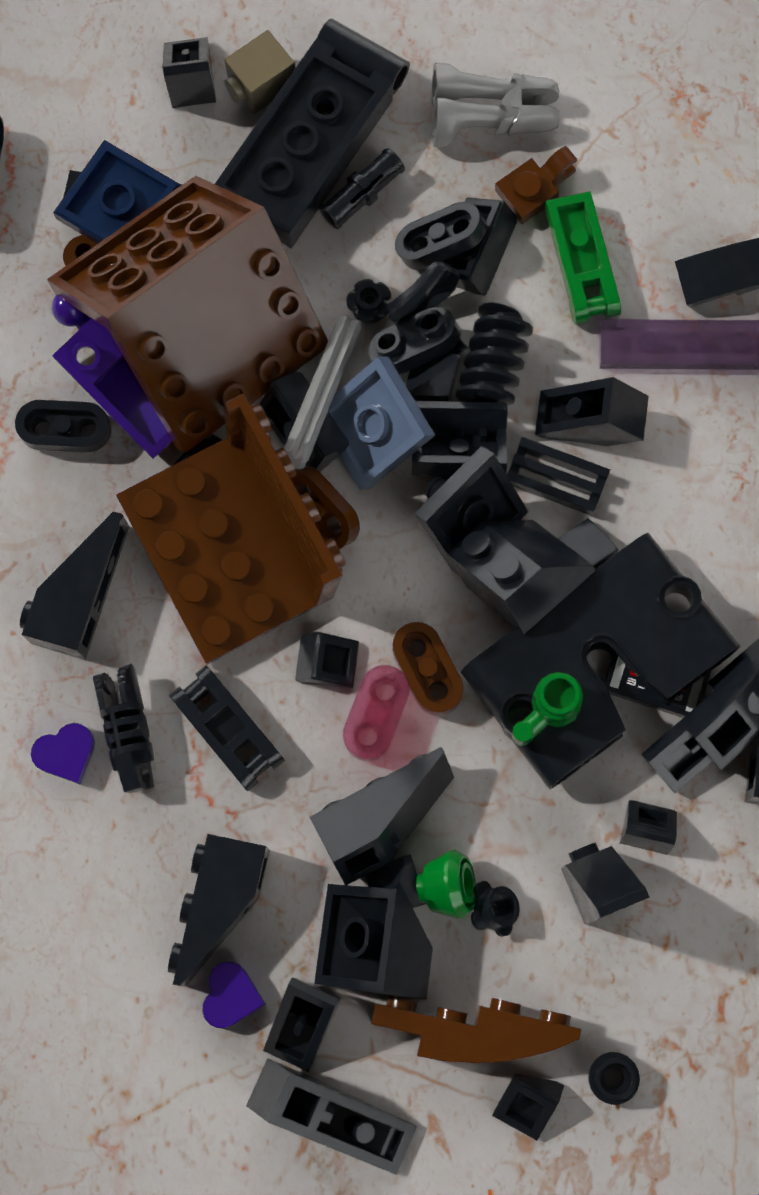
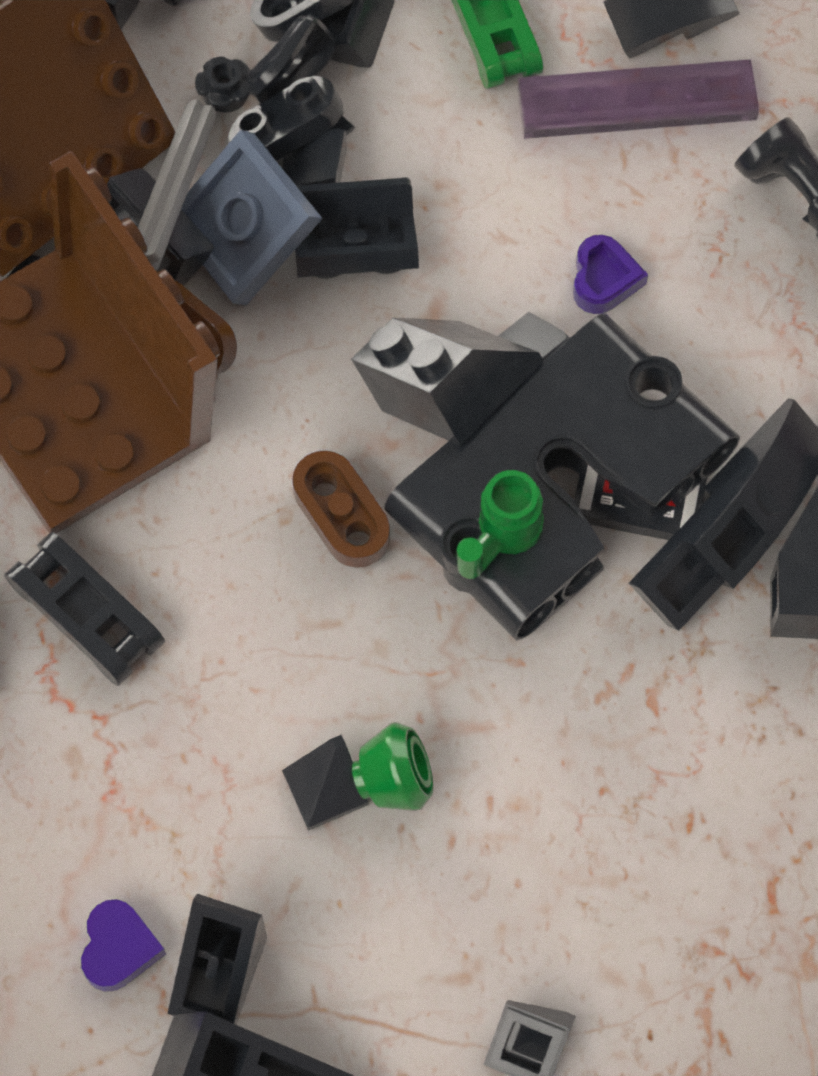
camera: 10 degrees left, 10 degrees down
(224, 892) = (98, 813): black slope -> none
(327, 660) = (209, 514): black slope -> none
(373, 943) = (304, 852): black slope -> none
(376, 714) = (278, 572): clear pink plate -> none
(377, 820) = (297, 693): black slope -> none
(471, 495) = (371, 288): black tile -> none
(492, 355) = (389, 124): black piece -> none
(496, 1036) = (478, 957): reddish brown slope -> none
(504, 910) = (459, 794): black plate -> none
(563, 460) = (487, 257): black tile -> none
(593, 413) = (521, 184): black slope -> none
(601, 882) = (597, 744): black slope -> none
(629, 1083) = (645, 976): black plate -> none
(649, 827) = (650, 679): black slope -> none
(650, 492) = (605, 275): none -> dark purple tile

